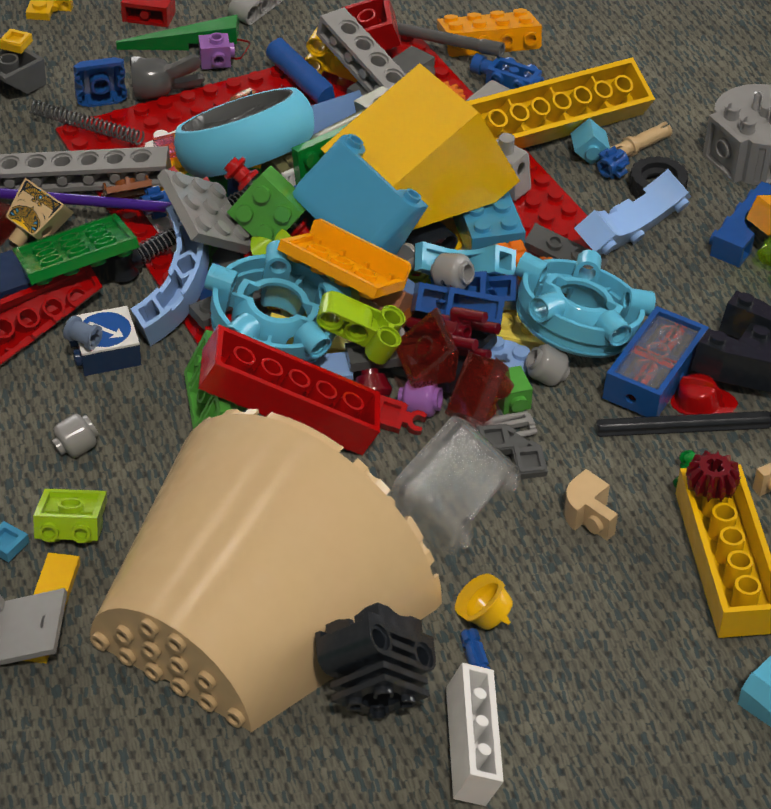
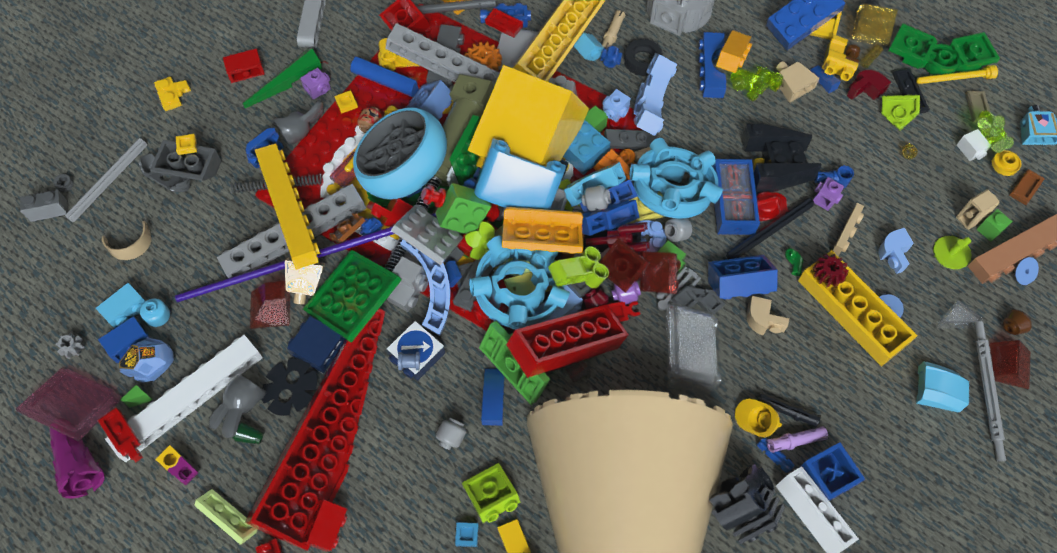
camera: 30 degrees left, 20 degrees up
(72, 134) = (286, 206): none -> yellow brick
(149, 269) = (412, 284): none -> light grey brick
(154, 427) = (493, 398): none -> blue slope
(234, 79) = (346, 101): none -> yellow plate
(493, 72) = (504, 22): none -> red plate
(518, 649) = (790, 441): none -> lavender pin
(531, 209) = (597, 118): none -> bright green brick
(533, 703) = (833, 471): none -> blue brick
(546, 626) = (791, 410): none -> black pin
(570, 206) = (616, 105): none -> light blue brick
(587, 443) = (742, 276): none -> blue brick

